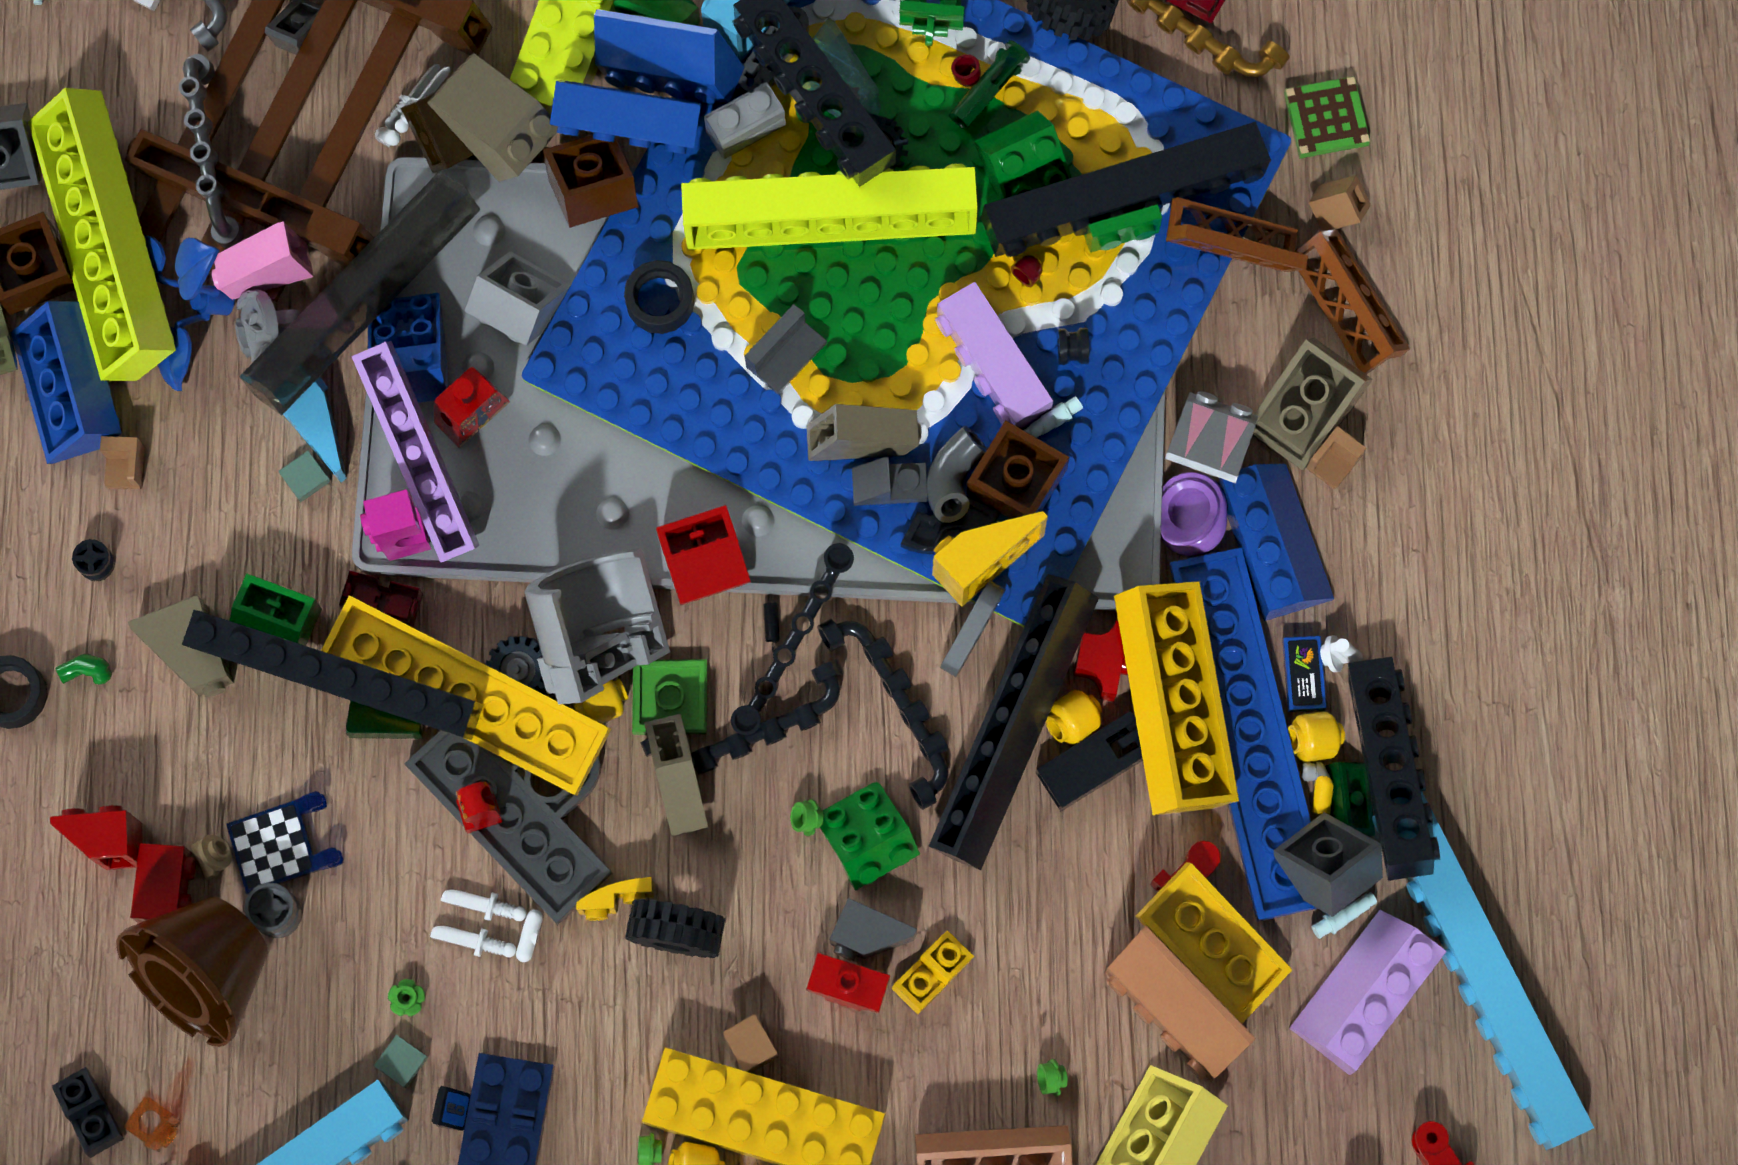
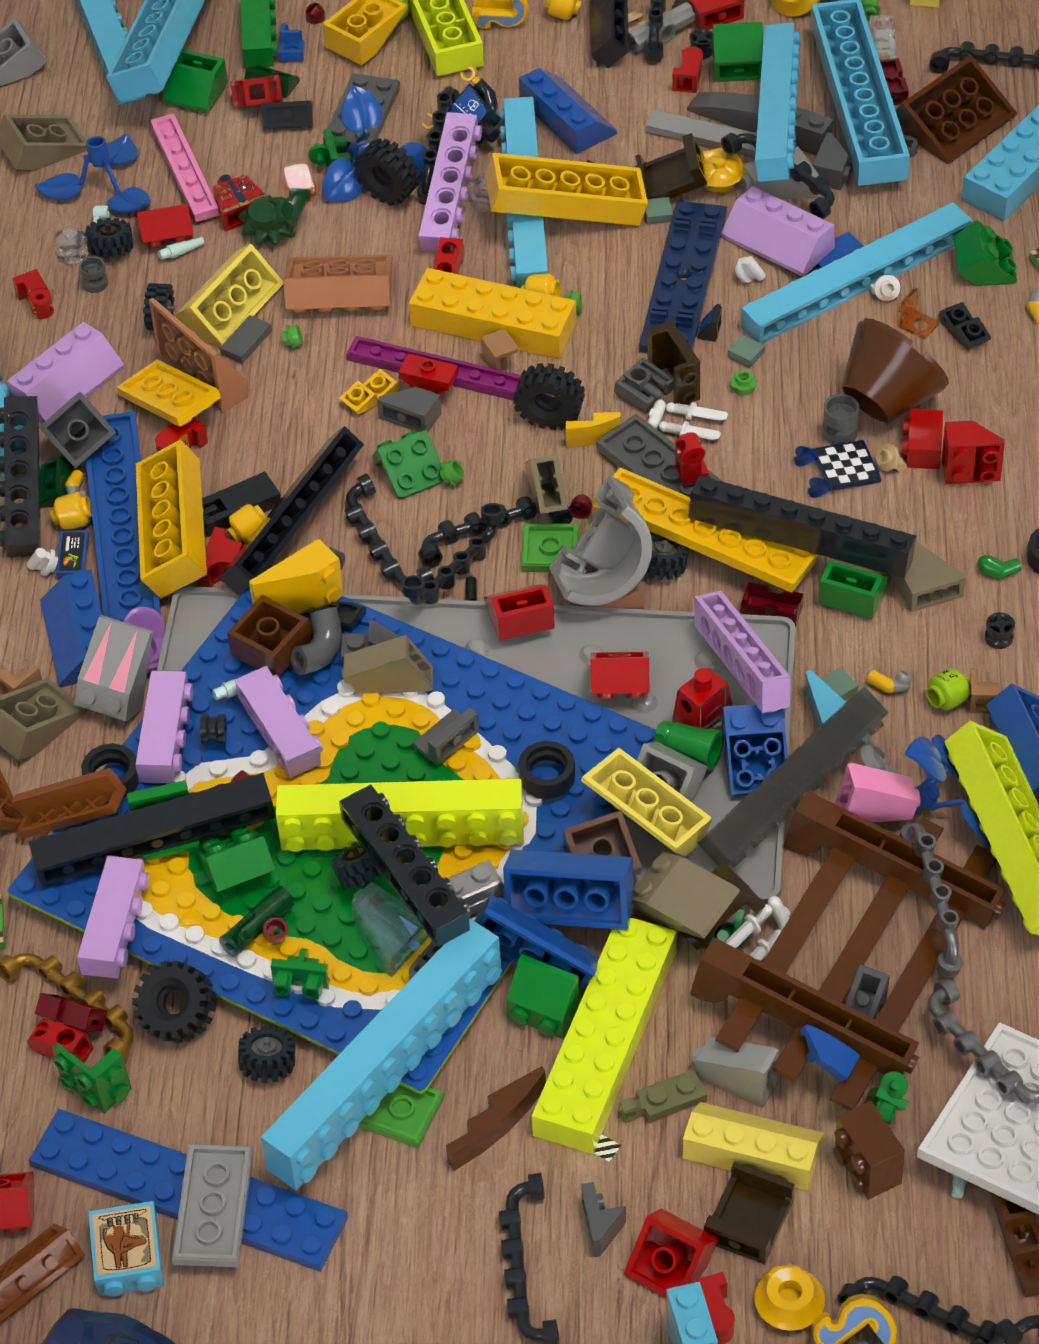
camera: 175 degrees left, 25 degrees down
(166, 459) = (948, 689): none -> lime head
(238, 478) = (890, 685): none -> arm
(395, 525) = (757, 599): dark pink arch -> none
(486, 349) = (692, 741): none -> green plant
(509, 1037) = (671, 351): none -> dark brown panel
(539, 231) = (649, 801): none -> light yellow slope
(559, 973) = (639, 381): none -> dark grey brick
(572, 459) = (619, 674): none -> red slope
(629, 765) = (581, 506): none -> dark red hinge
(822, 1018) = (470, 375): none -> magenta tile
(1120, 1077) = (245, 339): none -> dark grey tile
(1136, 347) = (163, 727): none -> lavender brick
(1157, 80) = (113, 917): none -> lavender brick
(1198, 257) = (113, 753): none -> black tyre
(1252, 1115) = (163, 294): none -> black wheel

